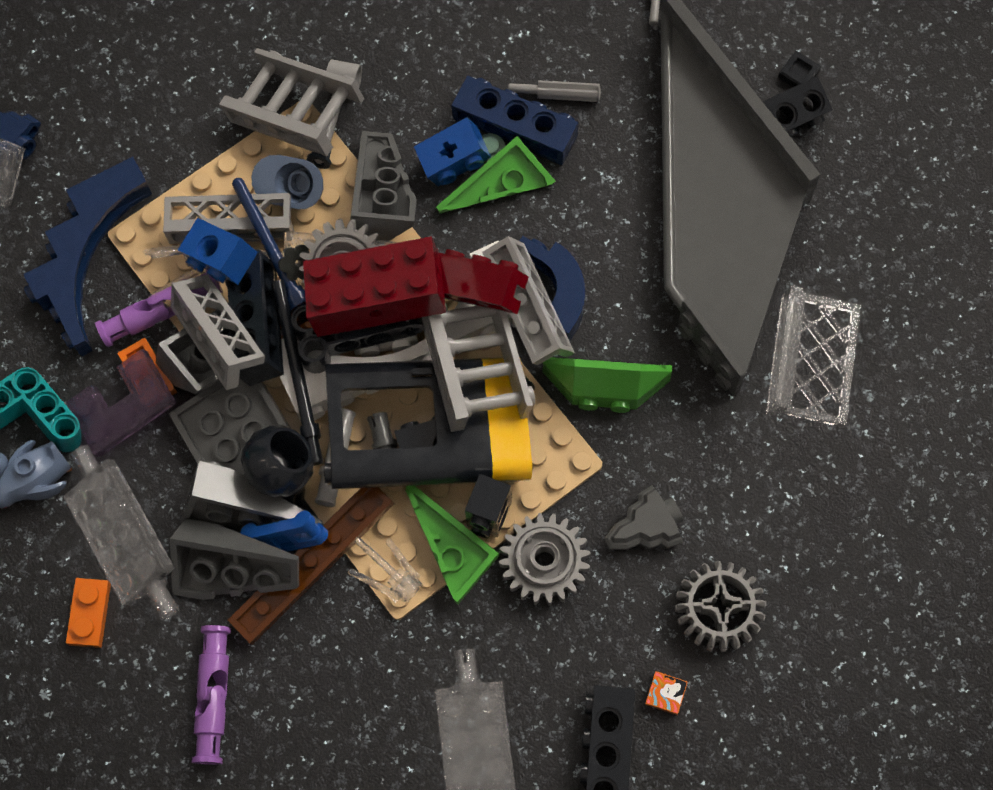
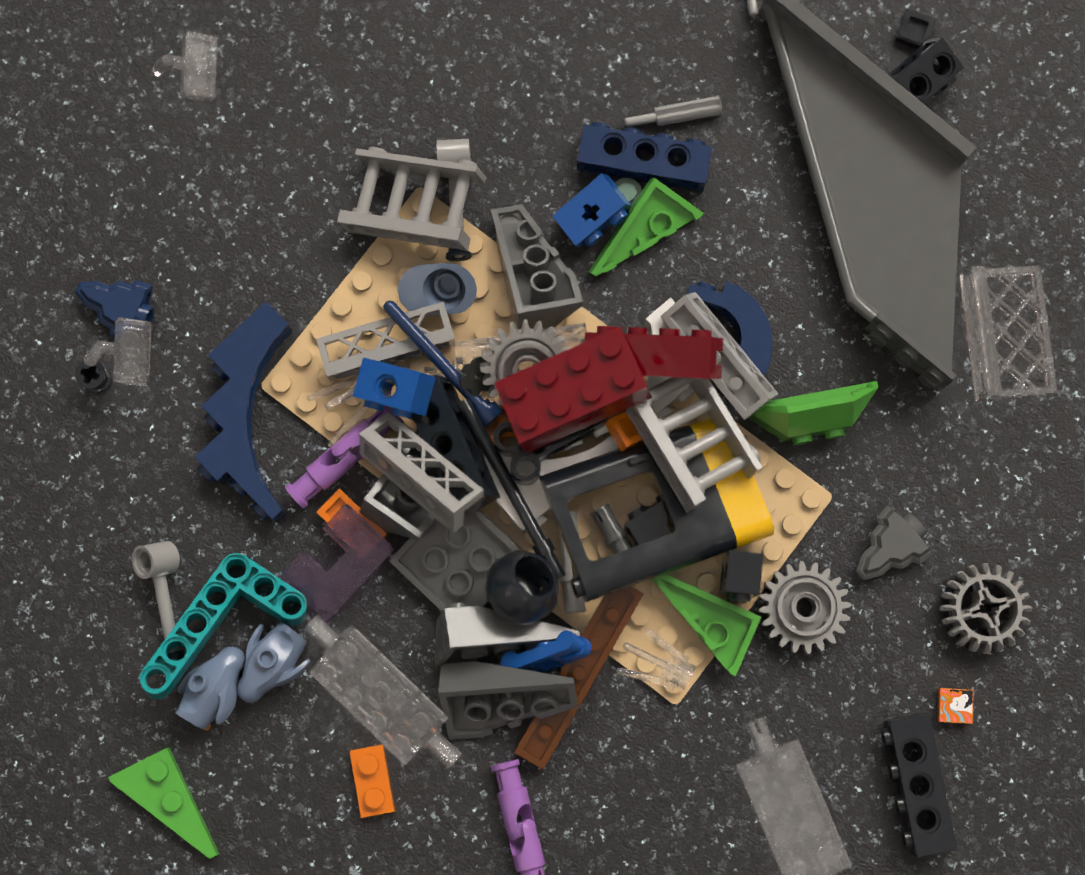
camera: 20 degrees left, 10 degrees up
(415, 344) = (623, 431): none -> orange tile

